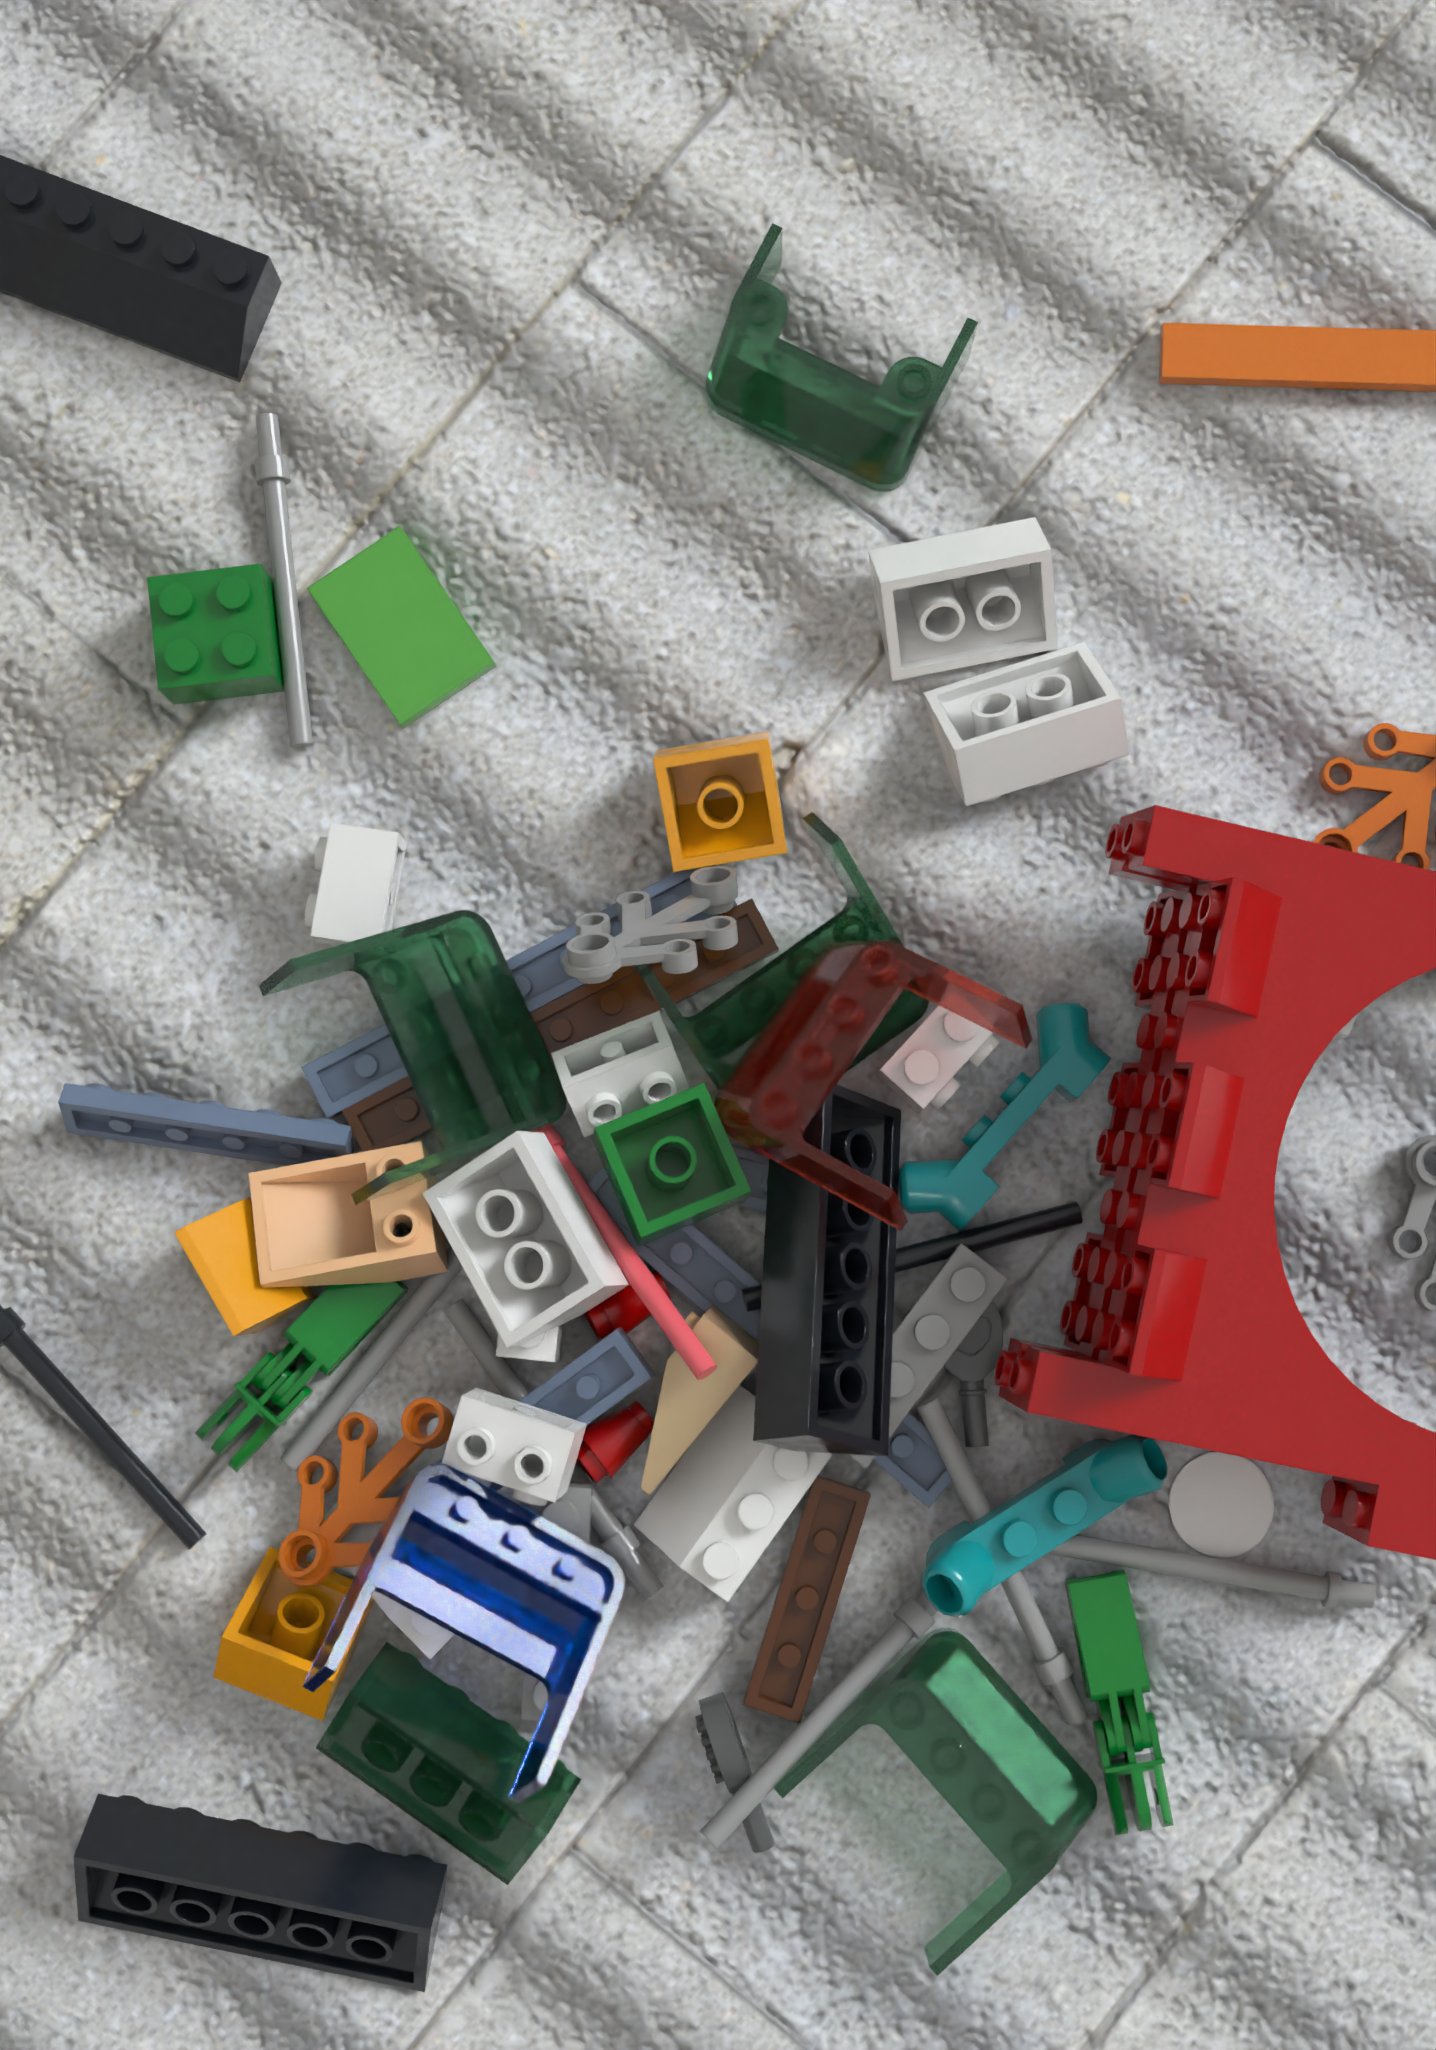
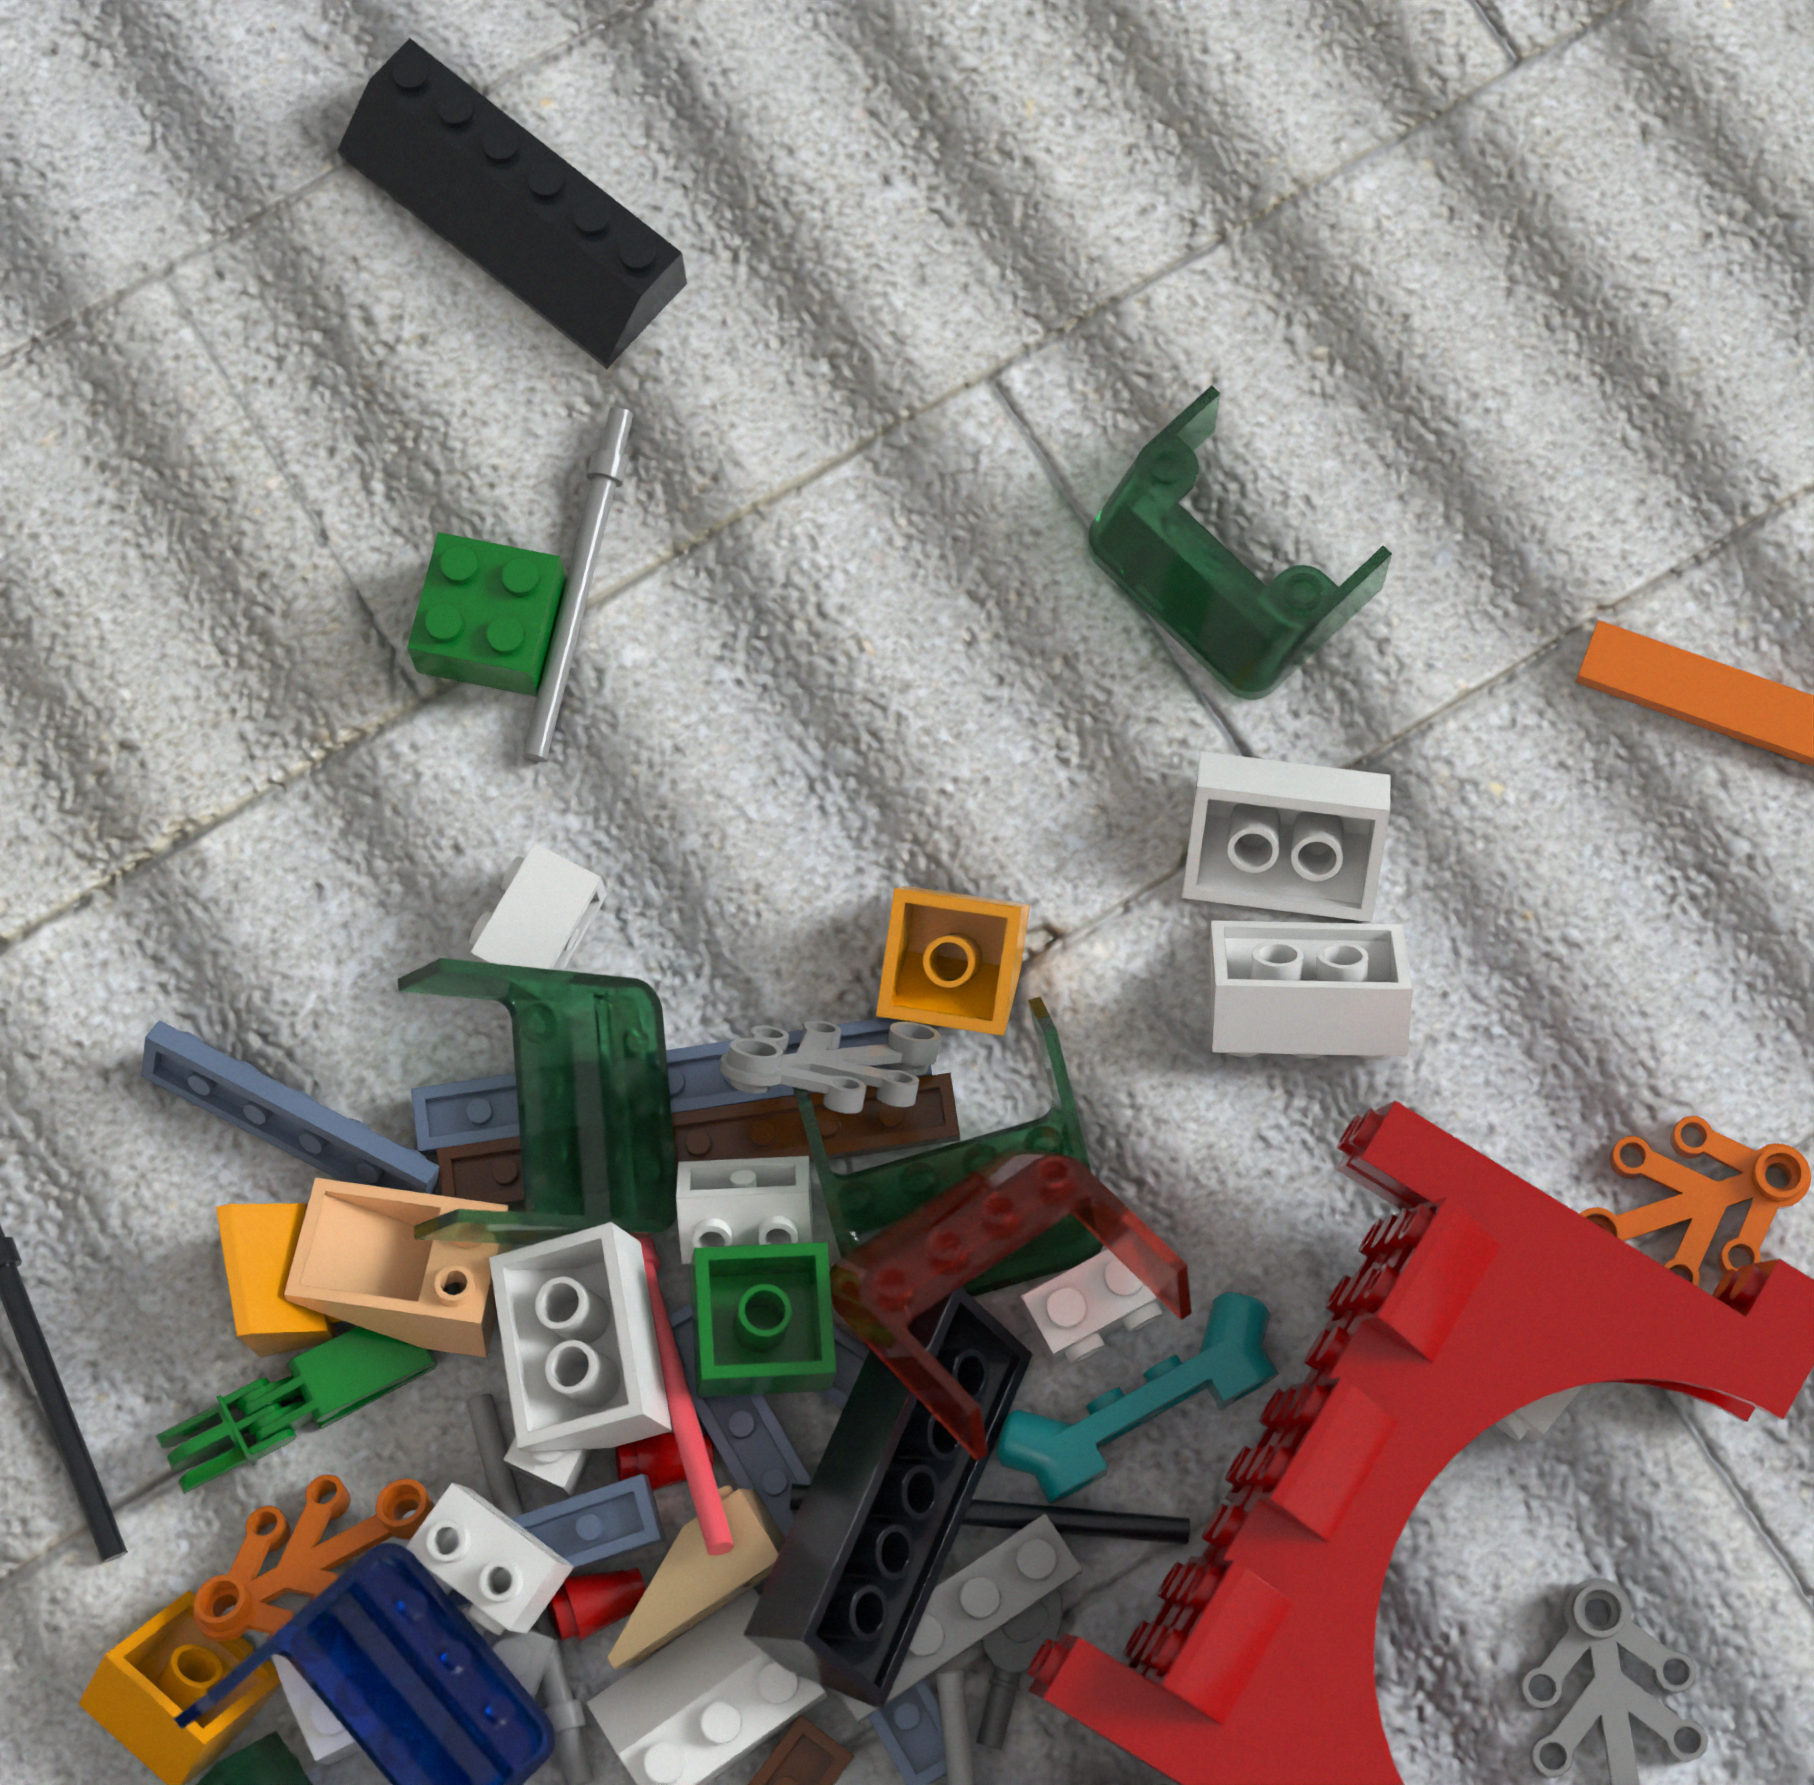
camera: 15 degrees right, 10 degrees down
(370, 1364) = (369, 1429): light grey bar -> none
(401, 627) = (683, 671): bright green tile -> none

